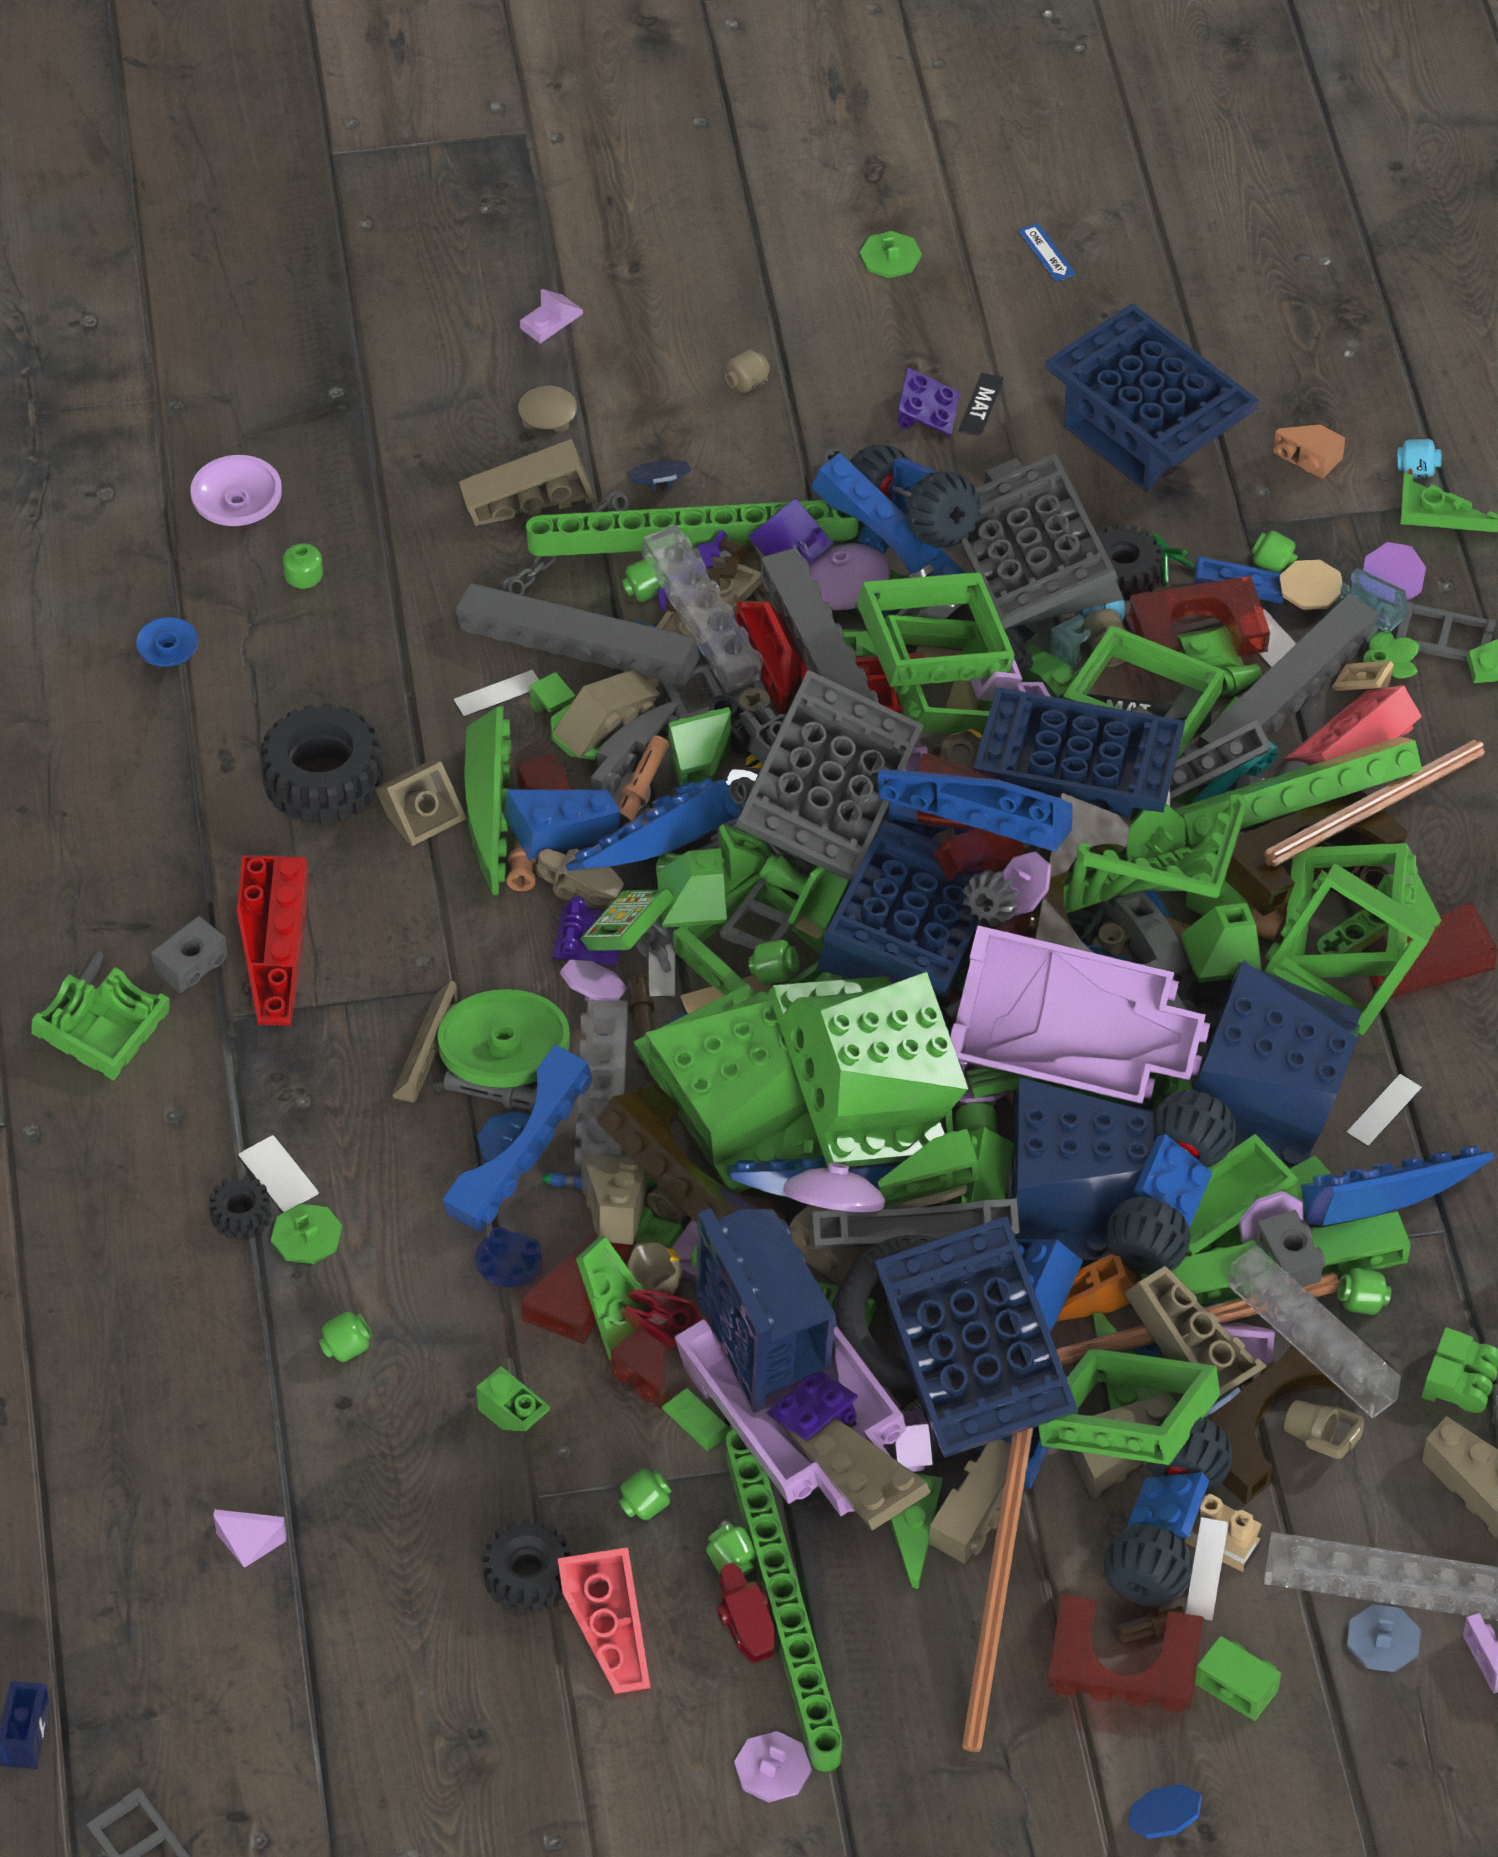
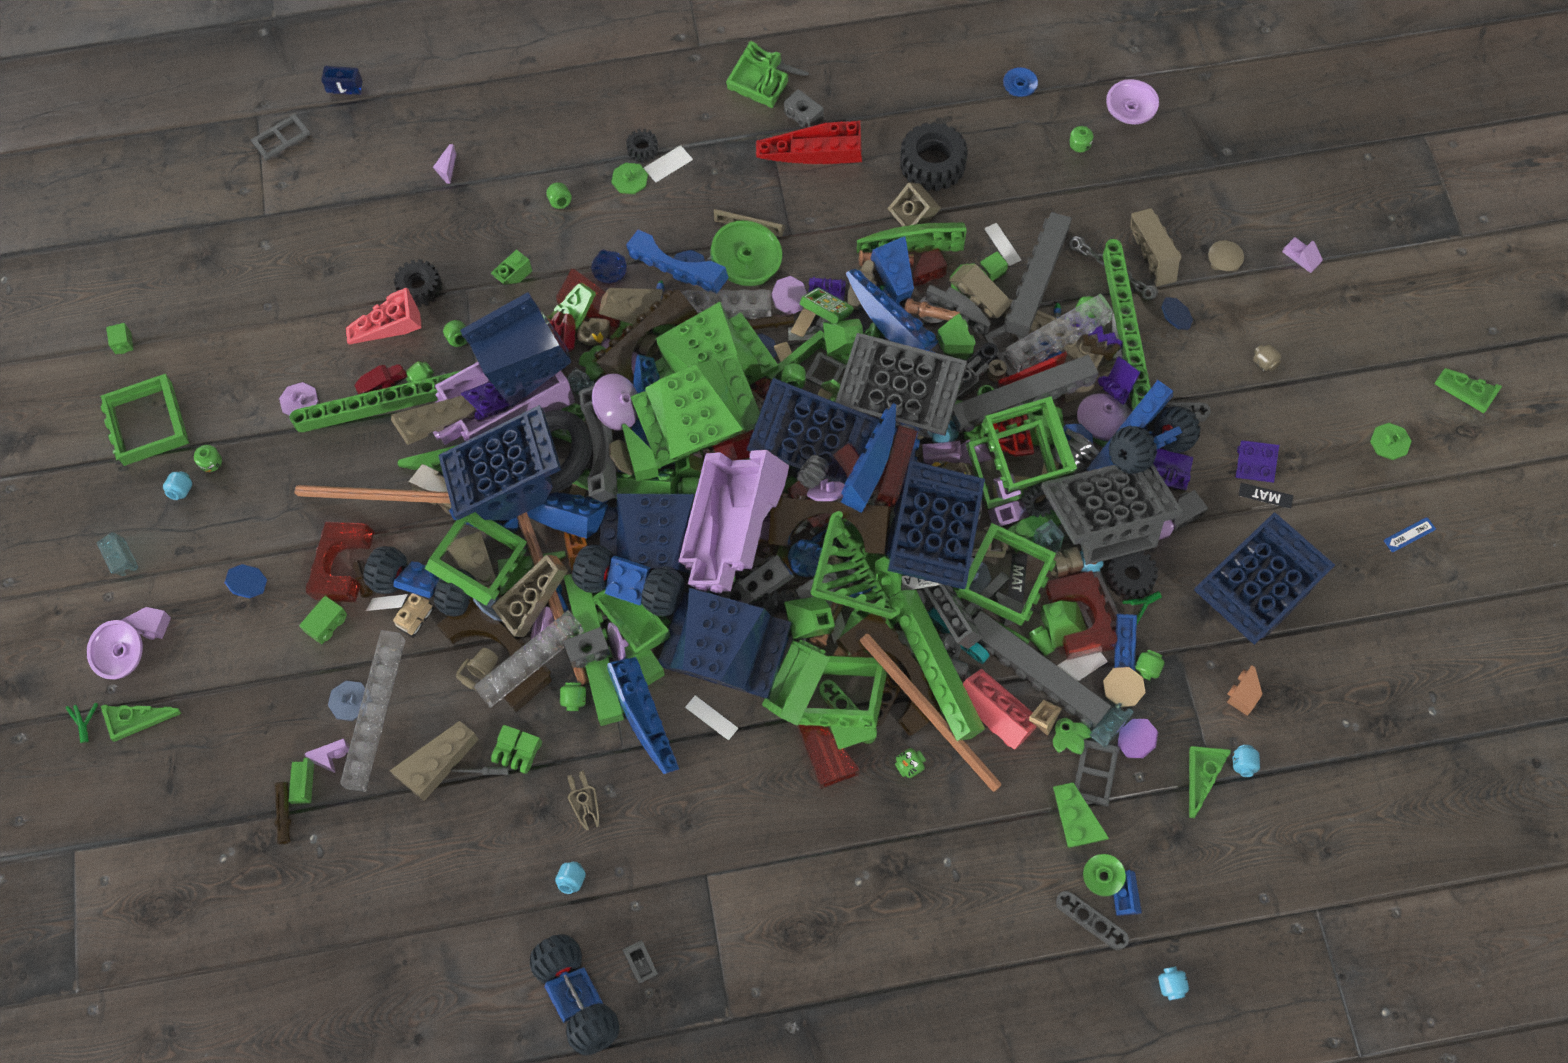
camera: 90 degrees right, 15 degrees up
(637, 963) = (803, 322): none -> tan sticker
(808, 155) = (1471, 391): none -> bright green wing
(1450, 846) = (910, 763): none -> bright green head

